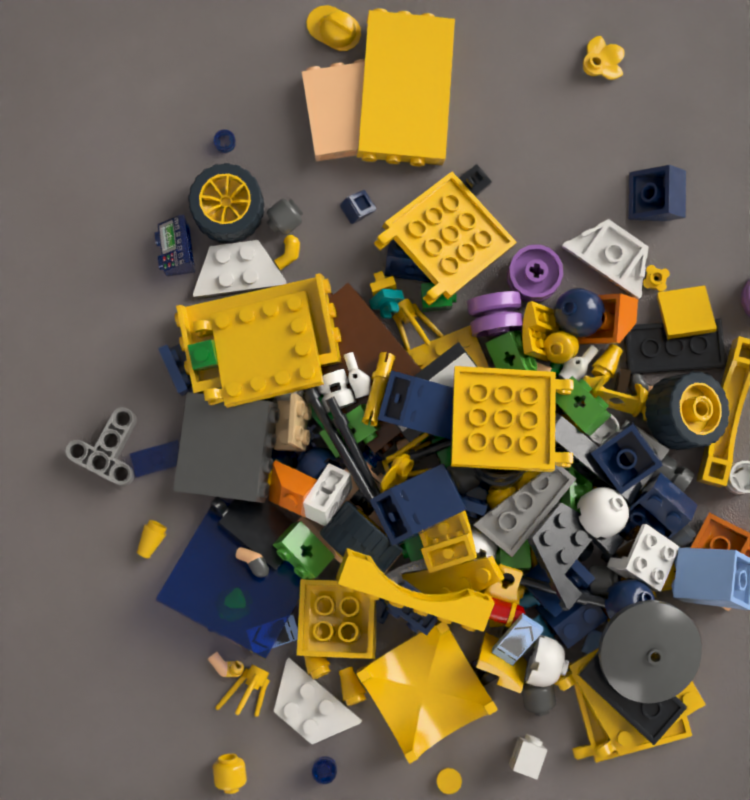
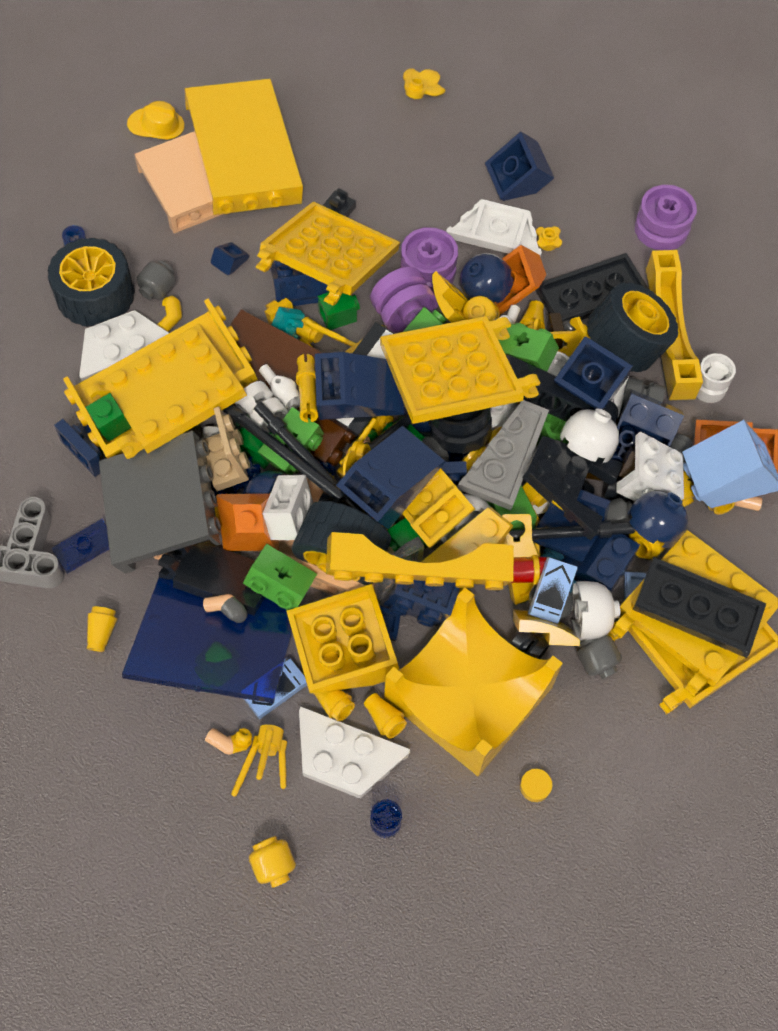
camera: 20 degrees left, 20 degrees down
(176, 246) = (47, 334): clear blue slope -> none
(528, 756) = (616, 719): white brick -> none
(631, 640) = (701, 551): dark grey dish -> none
(686, 312) = (590, 255): yellow tile -> none

